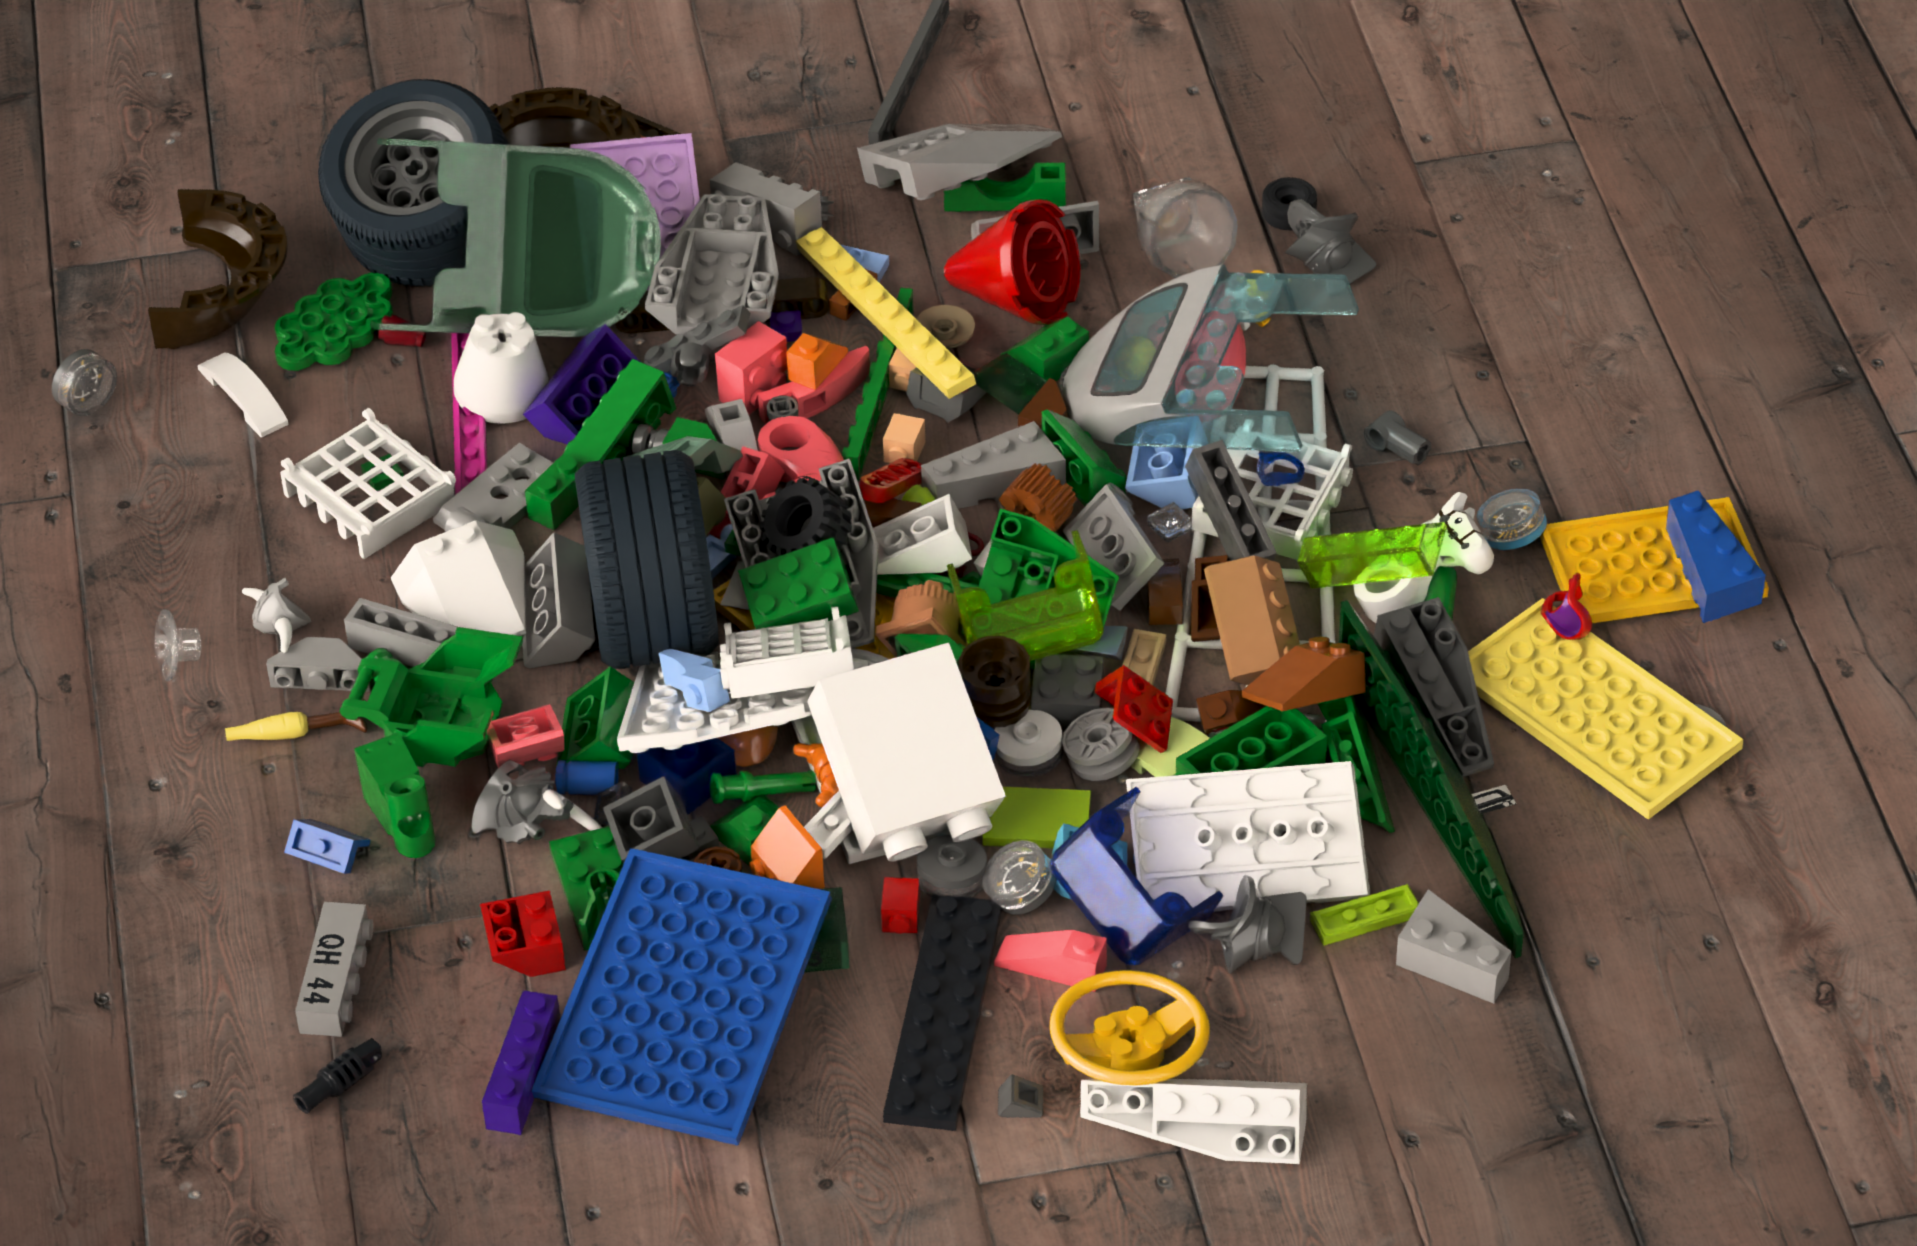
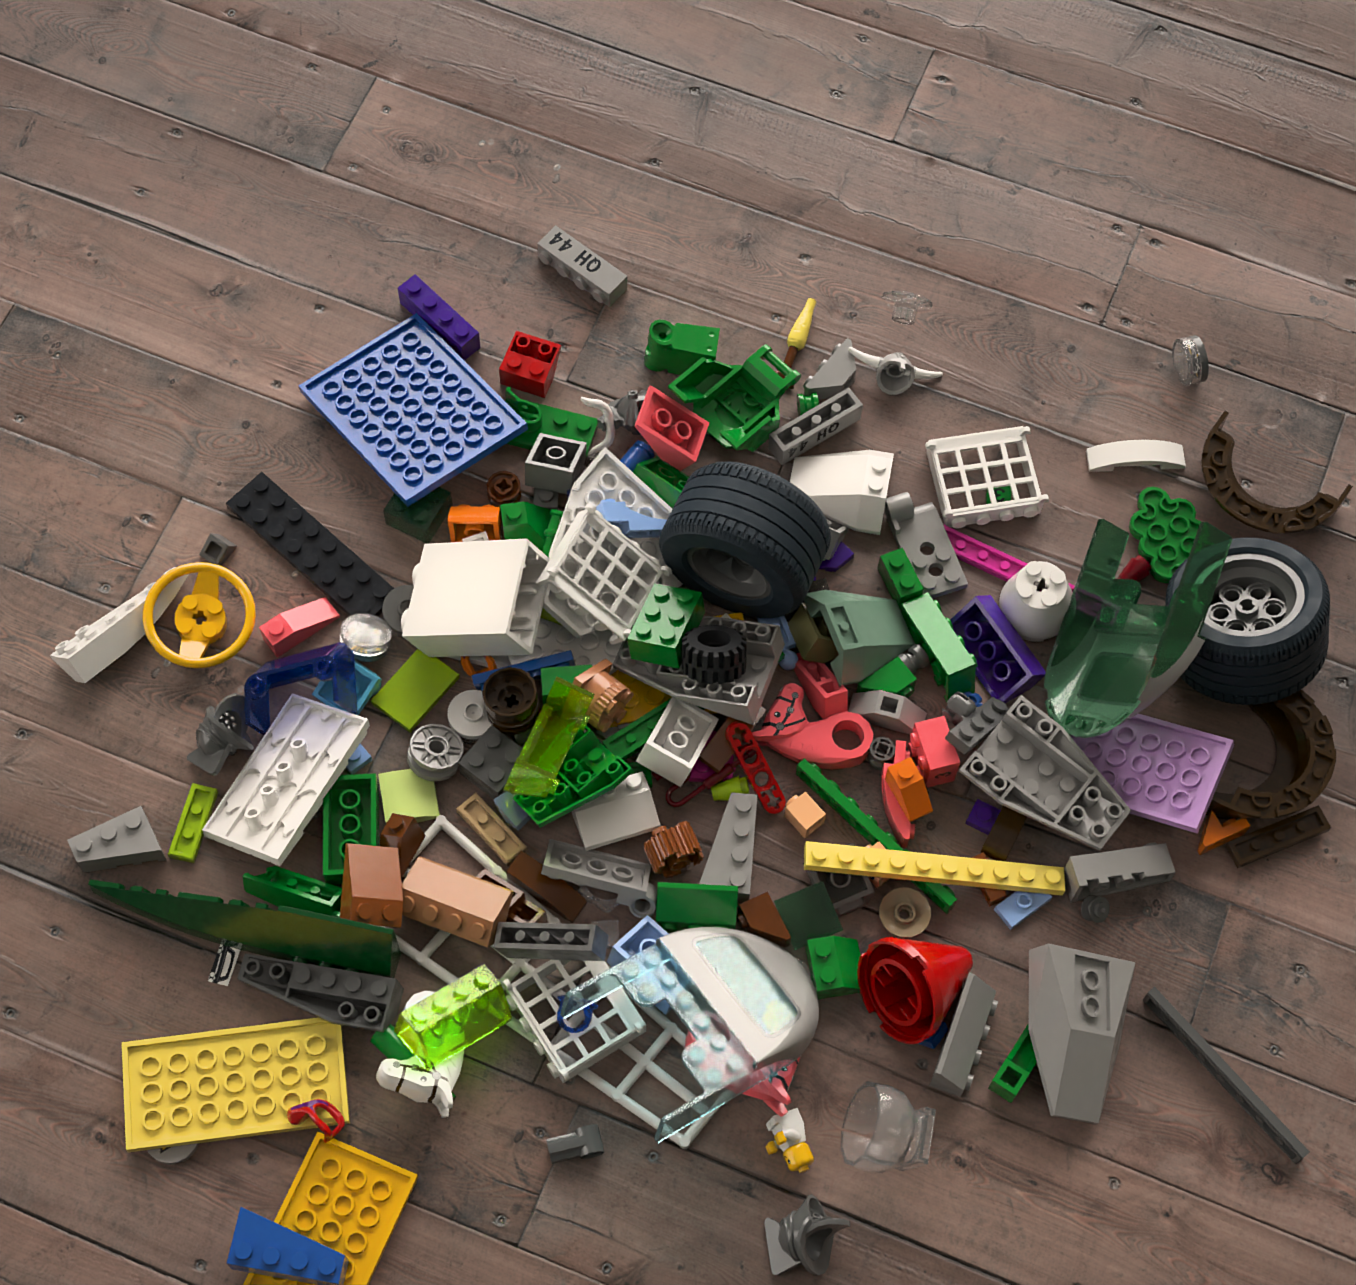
camera: 120 degrees right, 20 degrees up
(324, 844) = (688, 309): panel -> none
(339, 1075) = (503, 234): black hinge -> none
(900, 905) = (398, 566): red brick -> none
(1138, 706) = (434, 781): red bracket -> none
(1281, 192) = (882, 1239): black tyre -> none
(1512, 519) = (434, 1157): clear piece -> none

